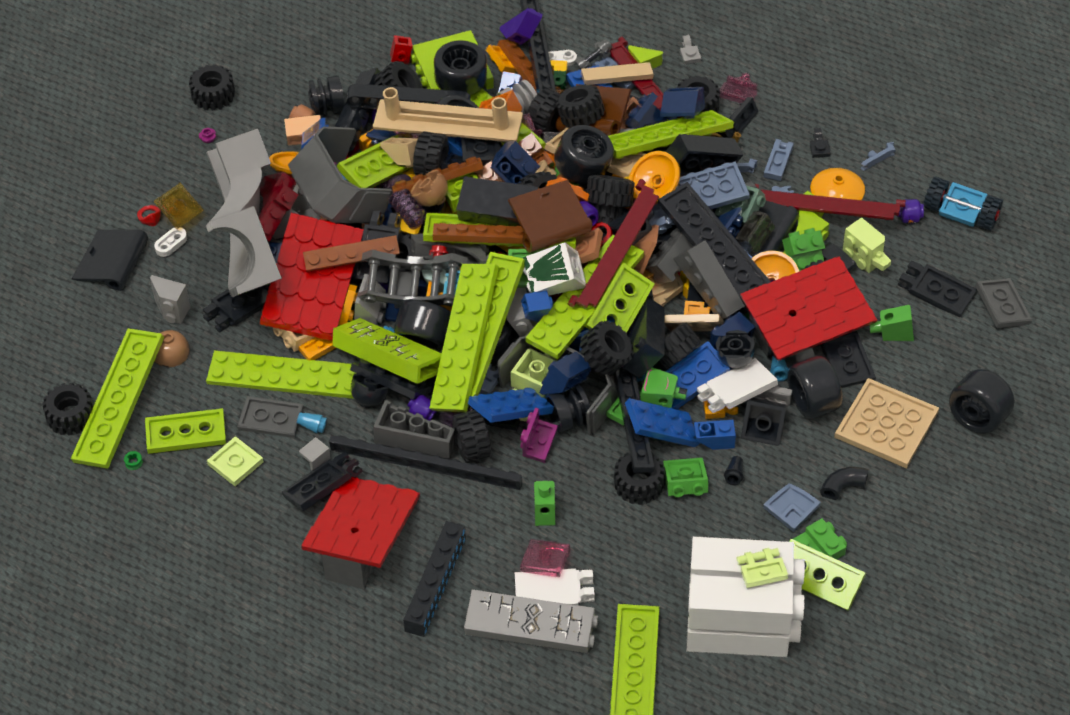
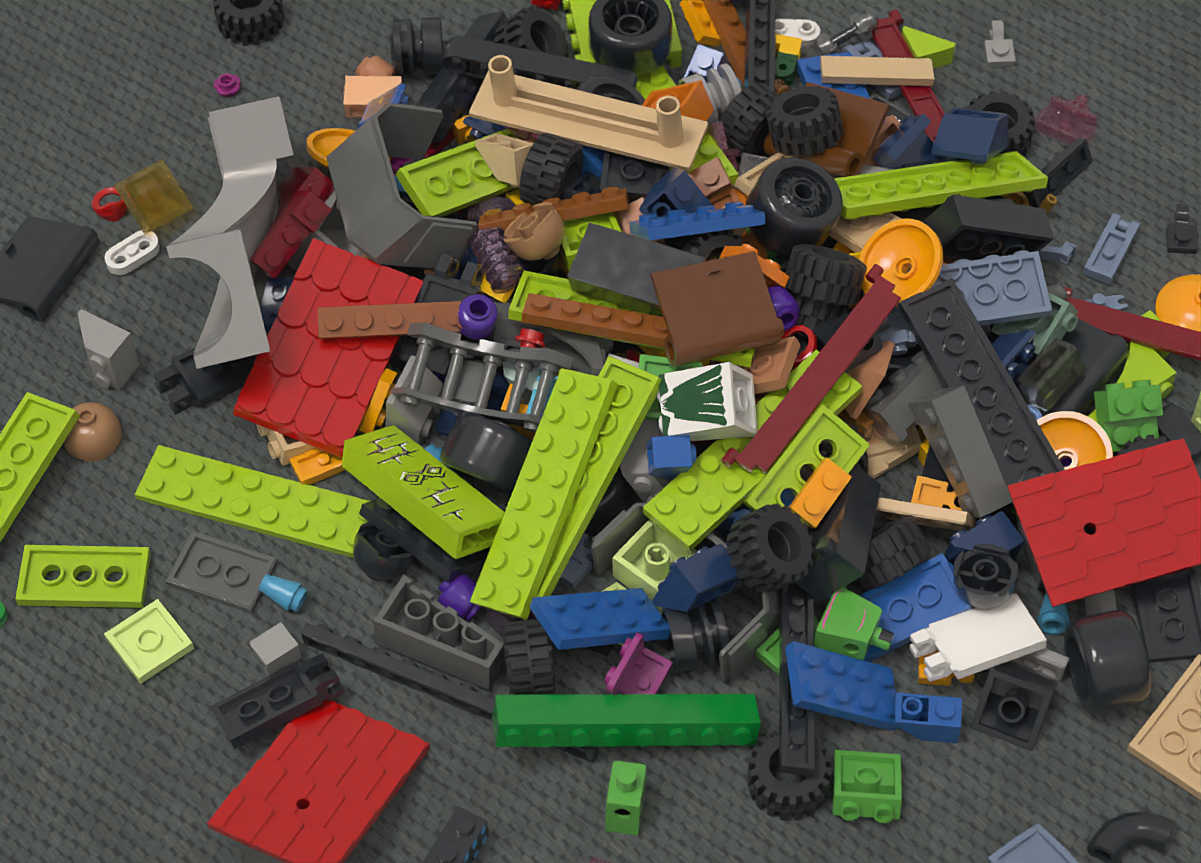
camera: 10 degrees right, 5 degrees up
(403, 242) = (477, 316): none -> dark purple head
(531, 167) = (704, 220): none -> blue plate
(536, 459) = (625, 720): none -> green brick
(630, 313) = (819, 492): none -> light orange plate
(734, 471) = (950, 786): black cone -> none

